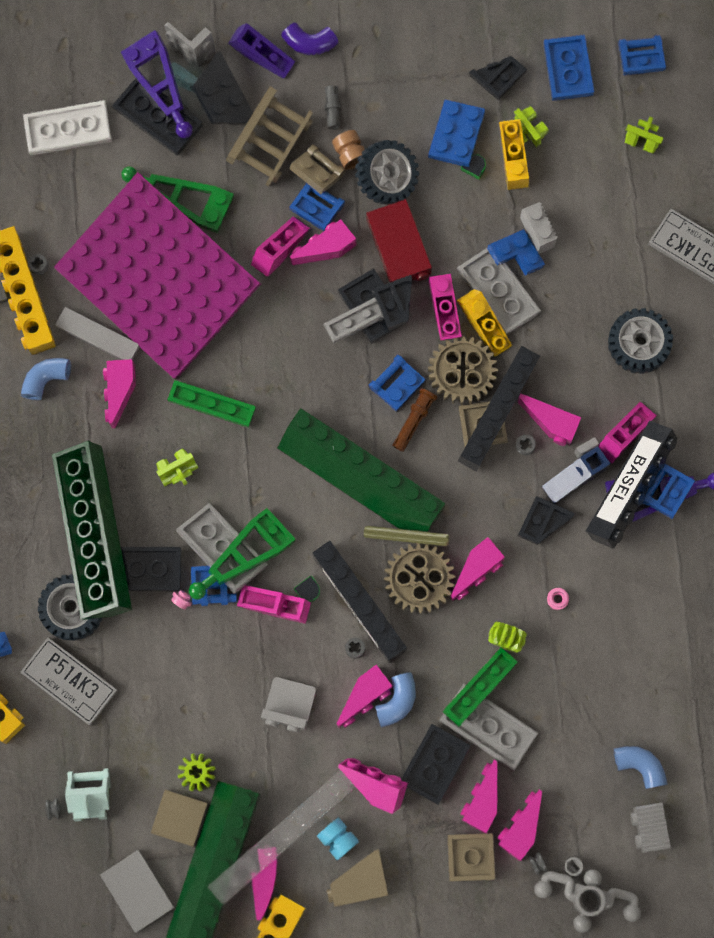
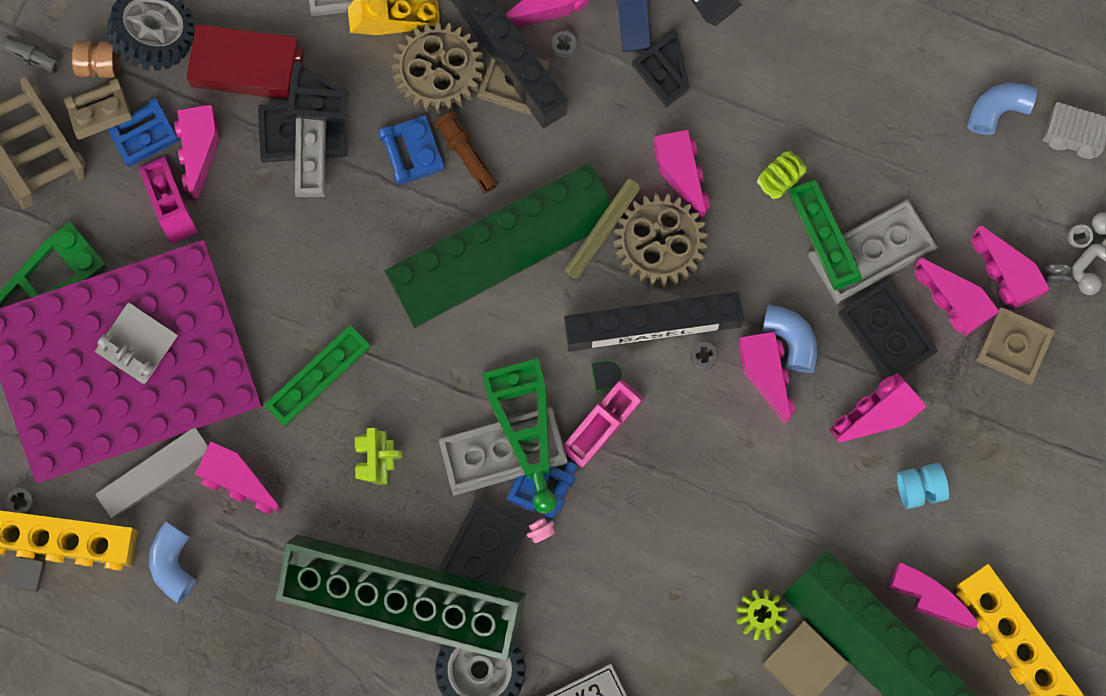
camera: 65 degrees left, 0 degrees up
(170, 278) = (136, 343): none -> light grey hinge
(281, 837) = (892, 550): clear tile -> none
(289, 704) = (734, 465): light grey bracket -> none
(360, 882) = (985, 486): dark tan slope -> none
(444, 306) = (350, 47): dark pink slope -> none
(558, 592) = (766, 92): bright pink plate -> none

